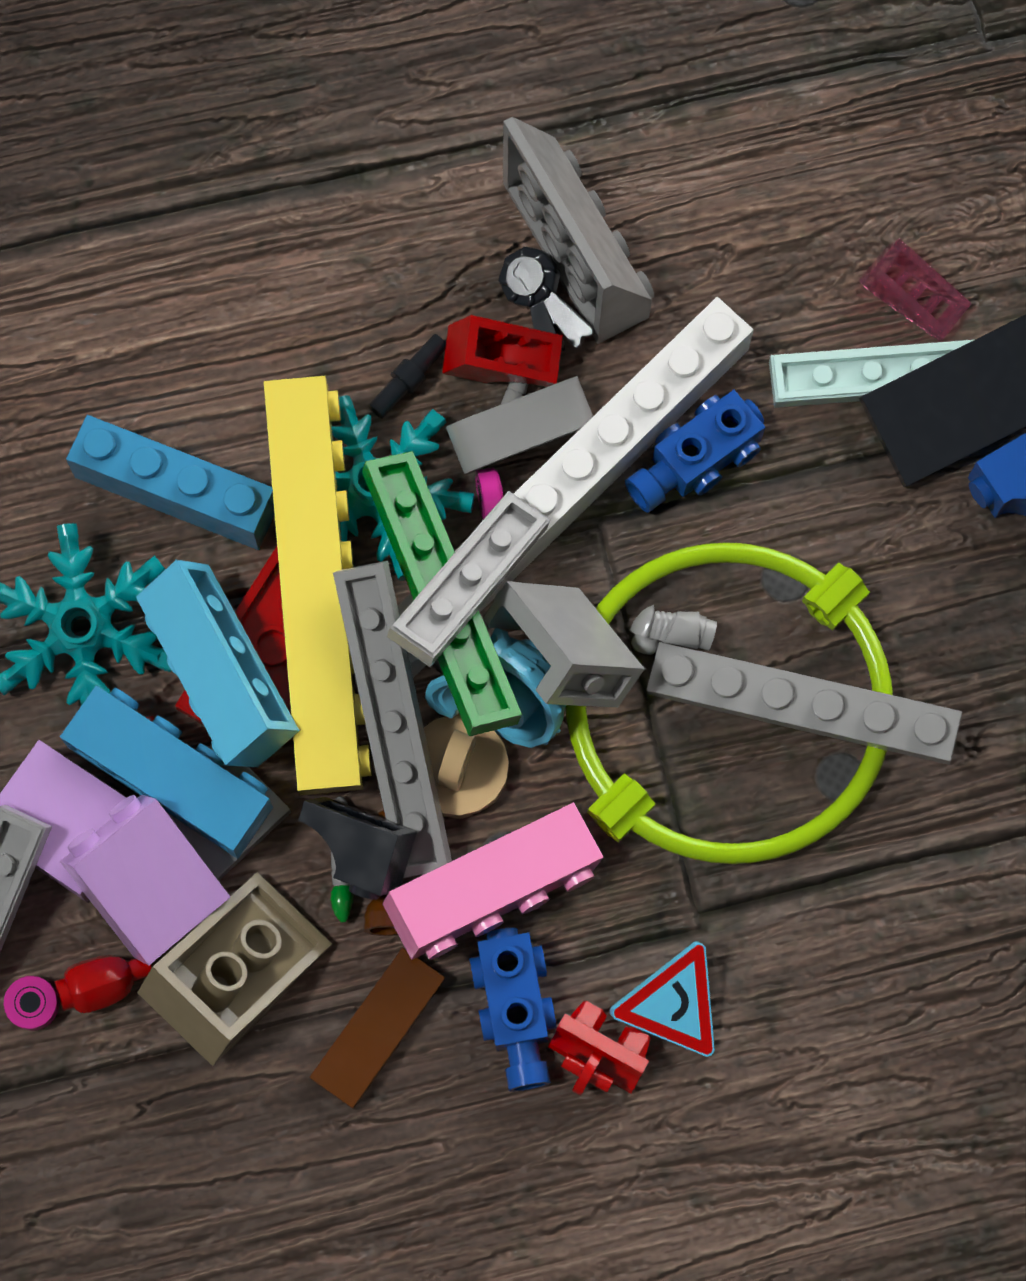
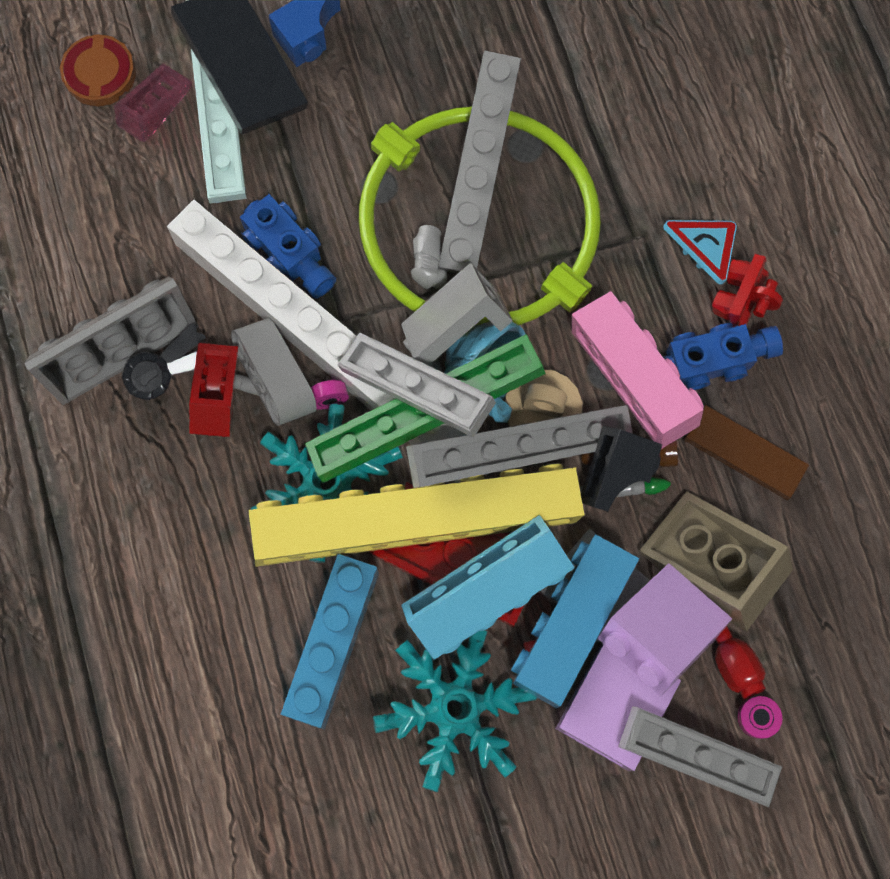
camera: 95 degrees left, 0 degrees up
(407, 376) = (231, 464): black bar -> none
(962, 222) = (97, 70): none -> dark orange tile

